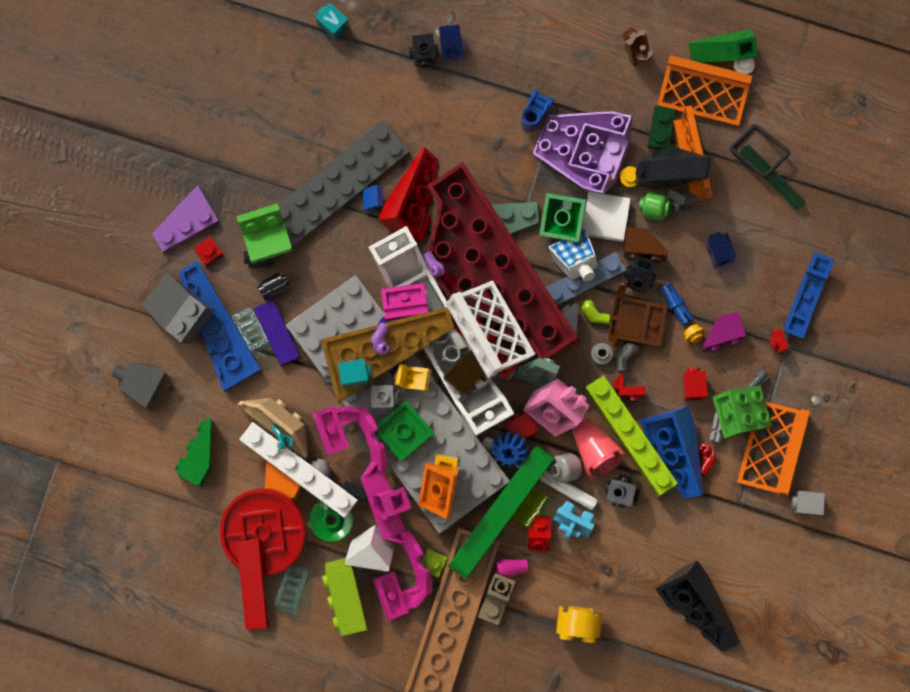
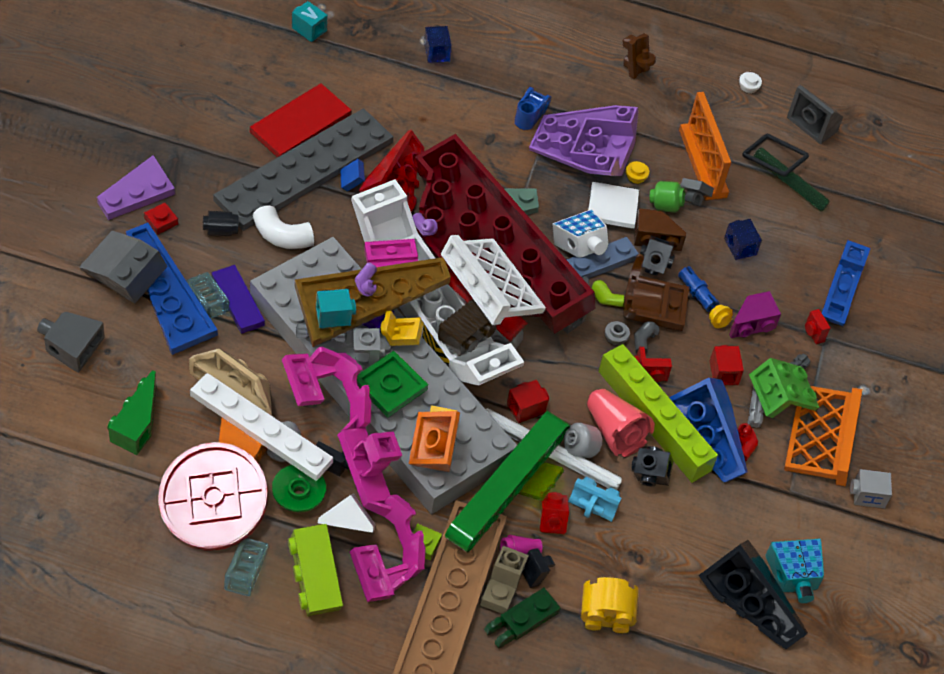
camera: 10 degrees left, 25 degrees down
(252, 584) = (197, 554): red tile -> none
(264, 233) = (228, 189): bright green bracket -> none
(273, 286) = (236, 251): black brick -> none
(282, 438) = (245, 388): teal hand -> none
(311, 266) = (282, 234): none -> white cylinder
(326, 136) = (300, 120): none -> red tile
(424, 50) = (409, 48): black brick -> none
(502, 447) = (525, 408): blue gear -> none
(512, 628) = (524, 617): none -> dark green hinge
(523, 587) = (537, 567): none -> black tile
(538, 372) = (548, 337): sand green wing -> none
(556, 407) = (571, 370): bright pink hinge -> none
(563, 217) = (568, 193): green slope -> none
(661, 127) = (667, 132): dark green plate -> none
(671, 168) = (681, 156): black wedge -> none
(710, 73) = (714, 85): orange fence -> none
(724, 47) = (728, 63): green slope -> none
(738, 580) = (797, 566): none -> torso
(801, 106) = (814, 115): none -> dark grey slope

